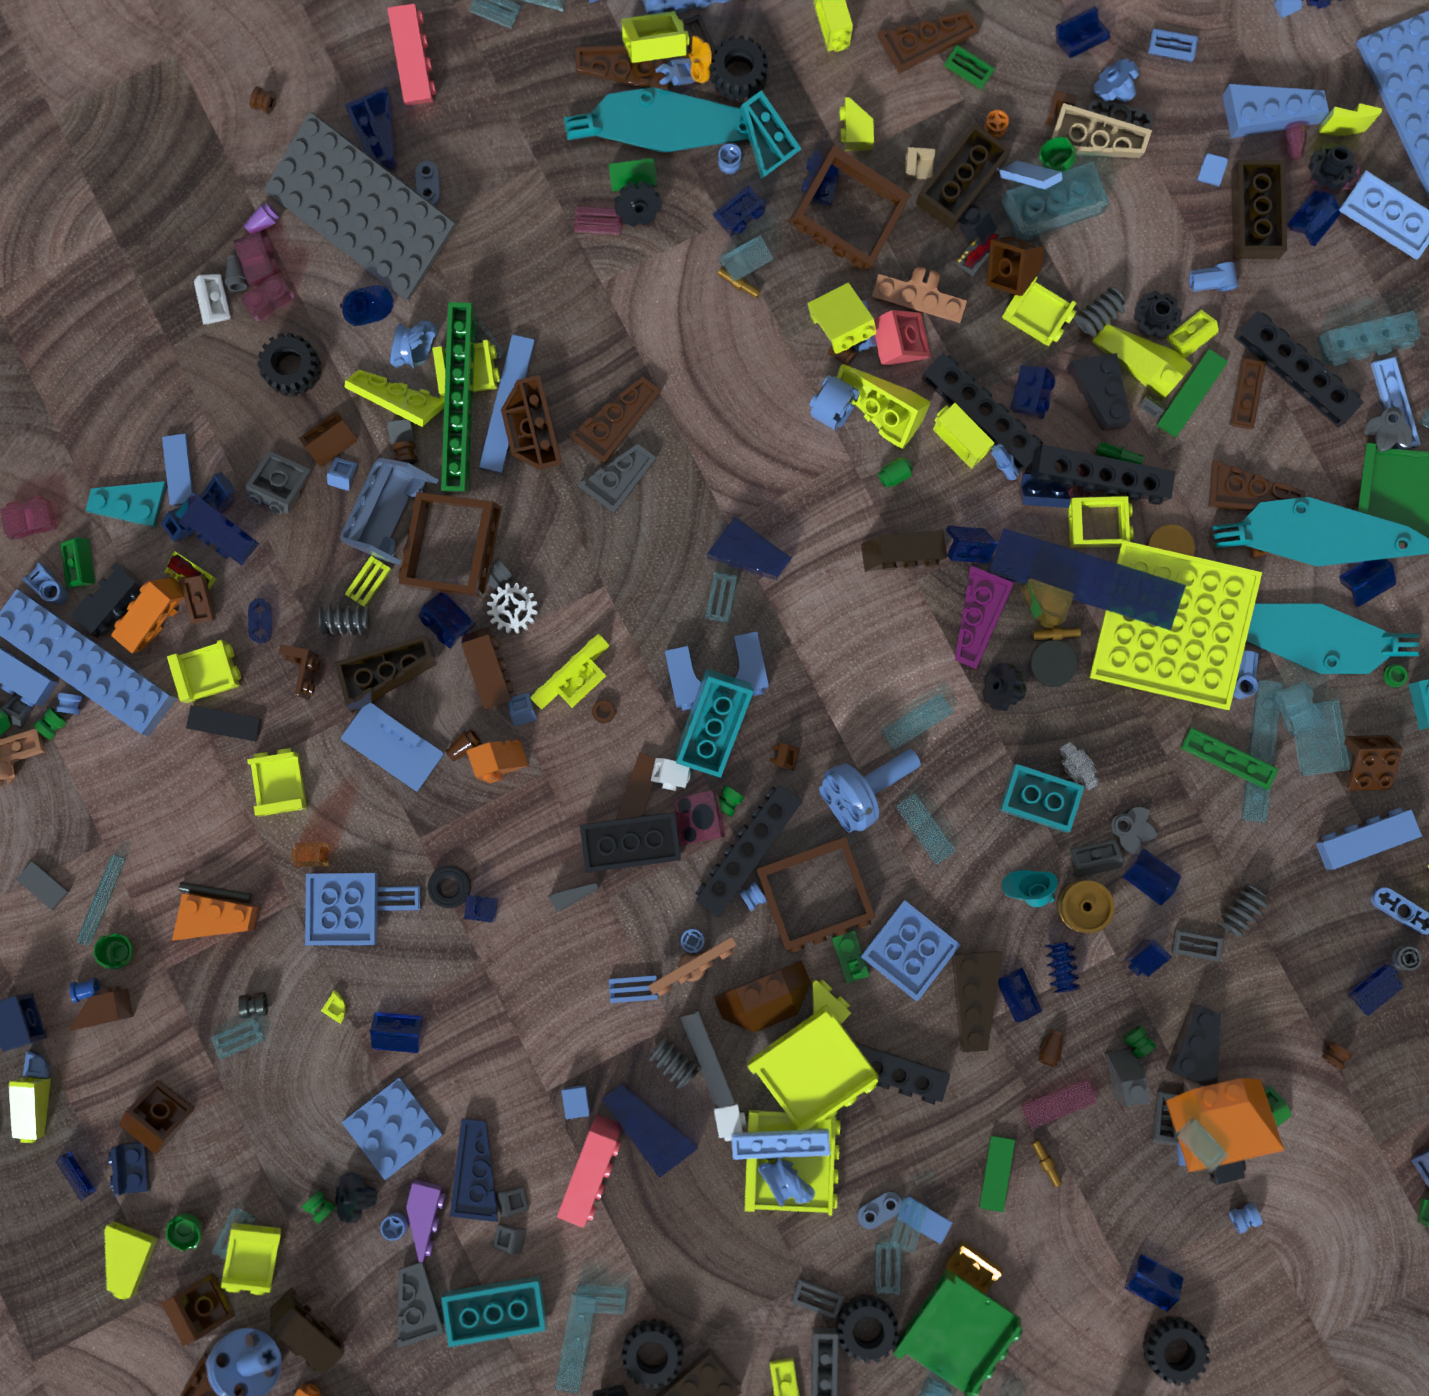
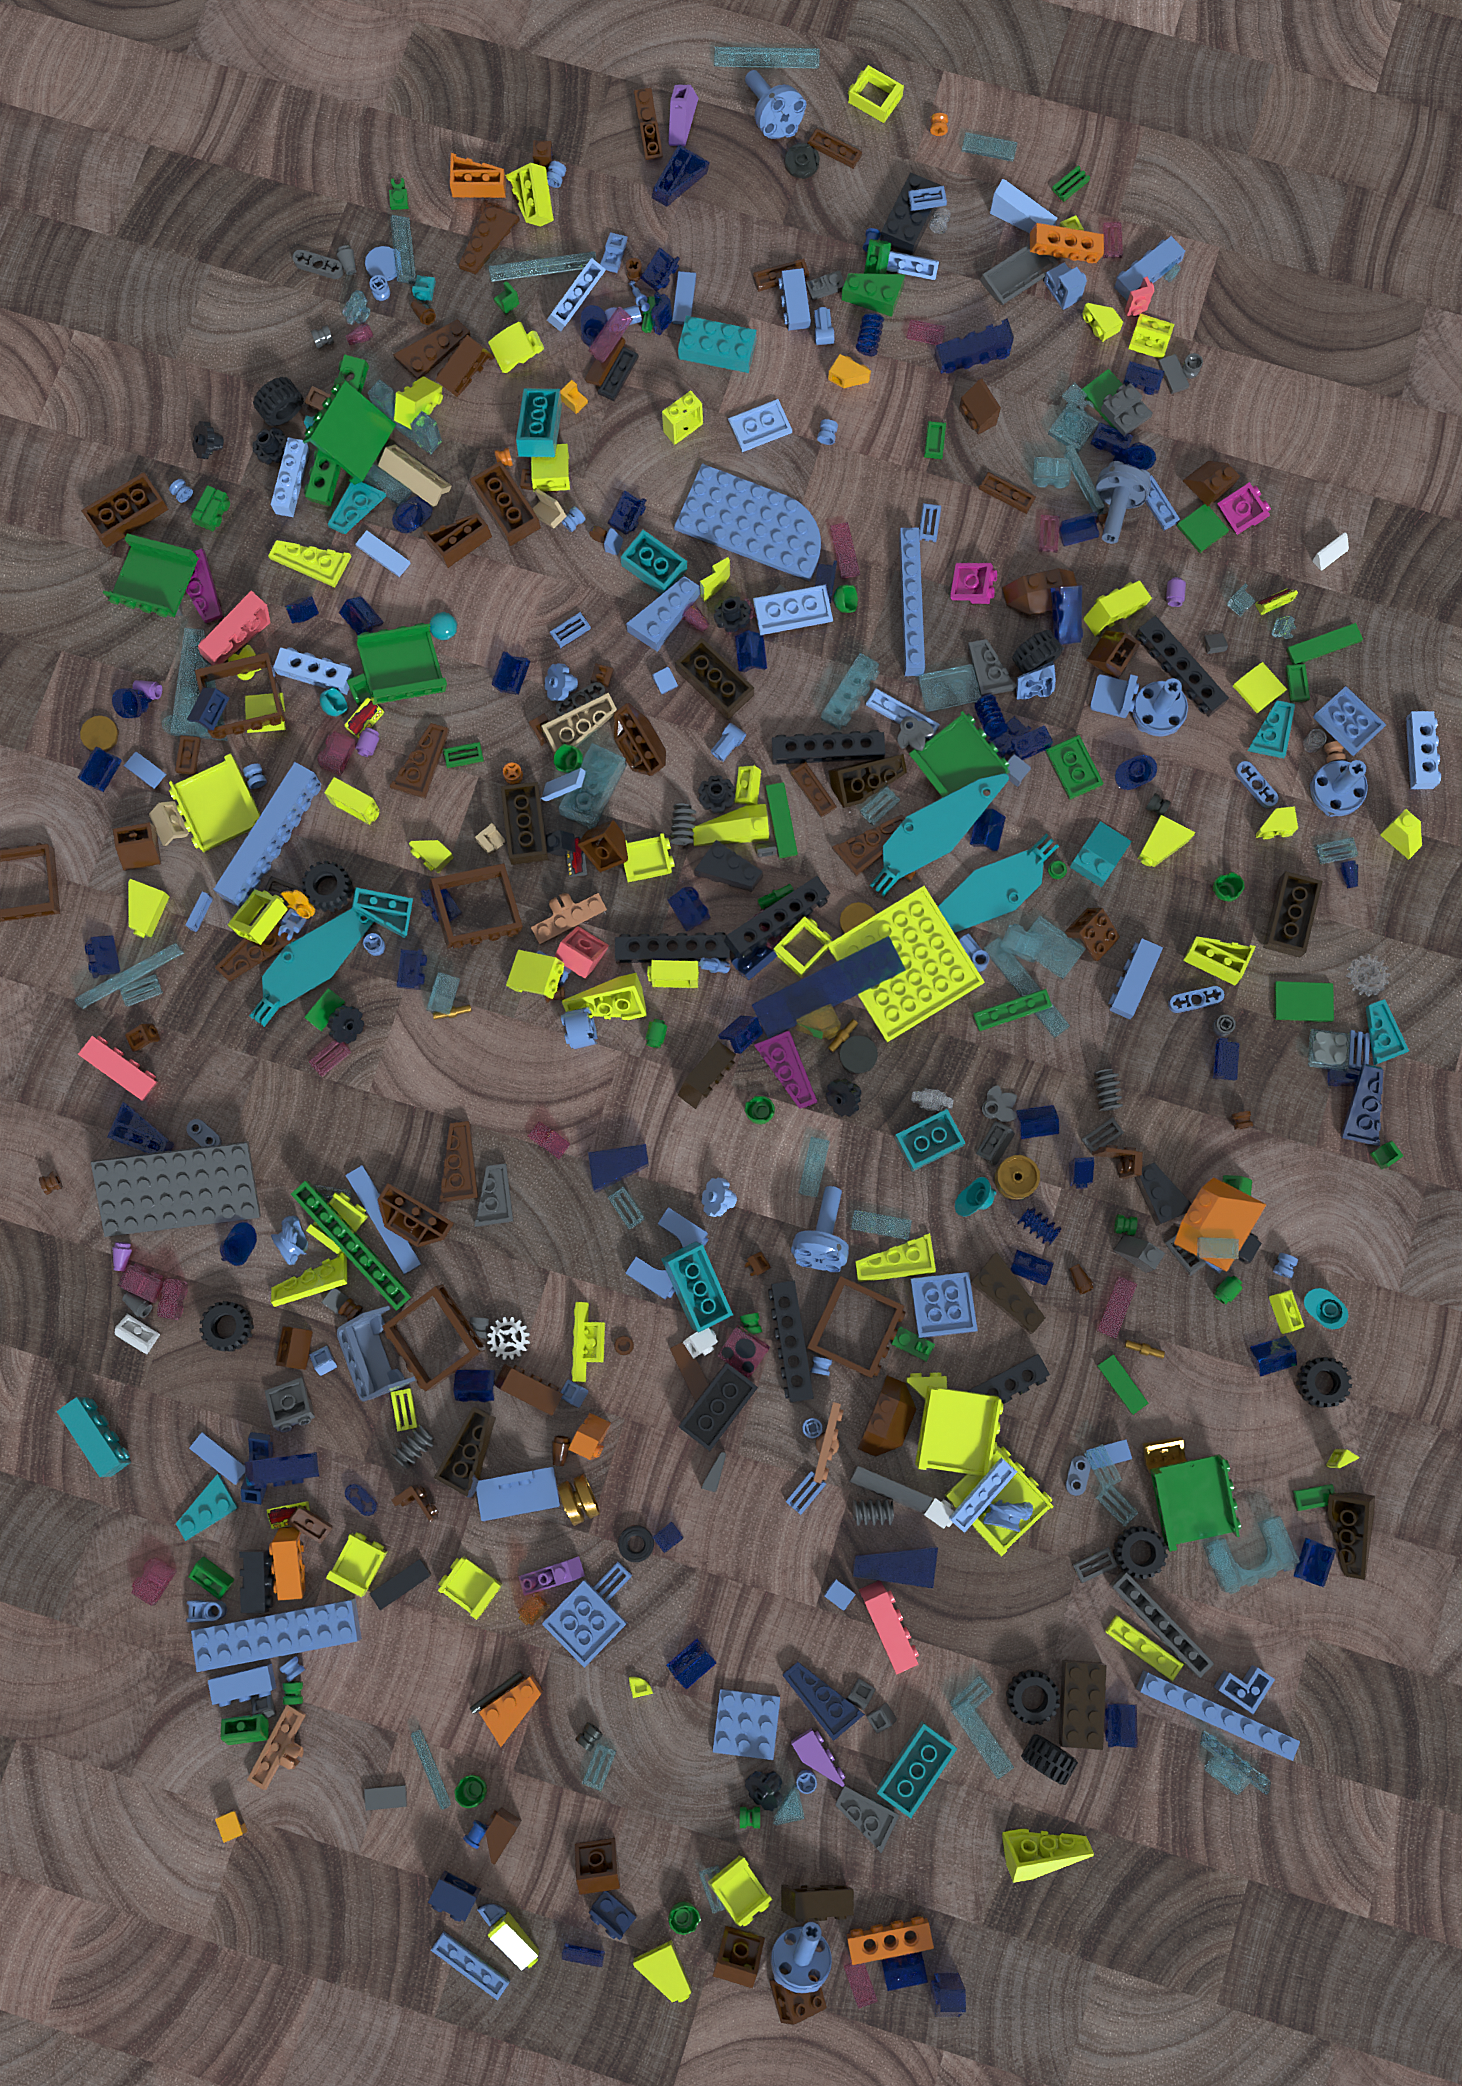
camera: 45 degrees left, 5 degrees down
(93, 349) = (94, 1436): none -> teal brick
(353, 842) = (551, 1576): none -> medium lavender slope
(358, 1235) = (791, 1808): none -> clear light blue slope
(436, 801) = (574, 1501): none -> pearl gold wheel
(458, 48) = (142, 1036): none -> reddish brown bracket
(712, 474) = (549, 1140): none -> clear pink slope
(808, 665) = (718, 1197): none -> light blue plant
(916, 880) = (904, 1260): none -> neon yellow wing
(919, 626) = (760, 1110): none -> green hair
(1135, 200) = (638, 741): none -> reddish brown wedge
(1162, 111) = (602, 674): none -> reddish brown tile
(1173, 1187) = (1228, 1289): none -> green brick
(1201, 990) = (1130, 1159): none -> reddish brown bracket
(1204, 1257) = (1286, 1312): none -> neon yellow slope
(1244, 1291) = (1326, 1308): none -> teal piece
(1297, 426) = (861, 780): none -> dark brown wedge
(1297, 456) = (875, 800): none -> clear light blue tile
(1308, 52) = (653, 562): none -> teal brick

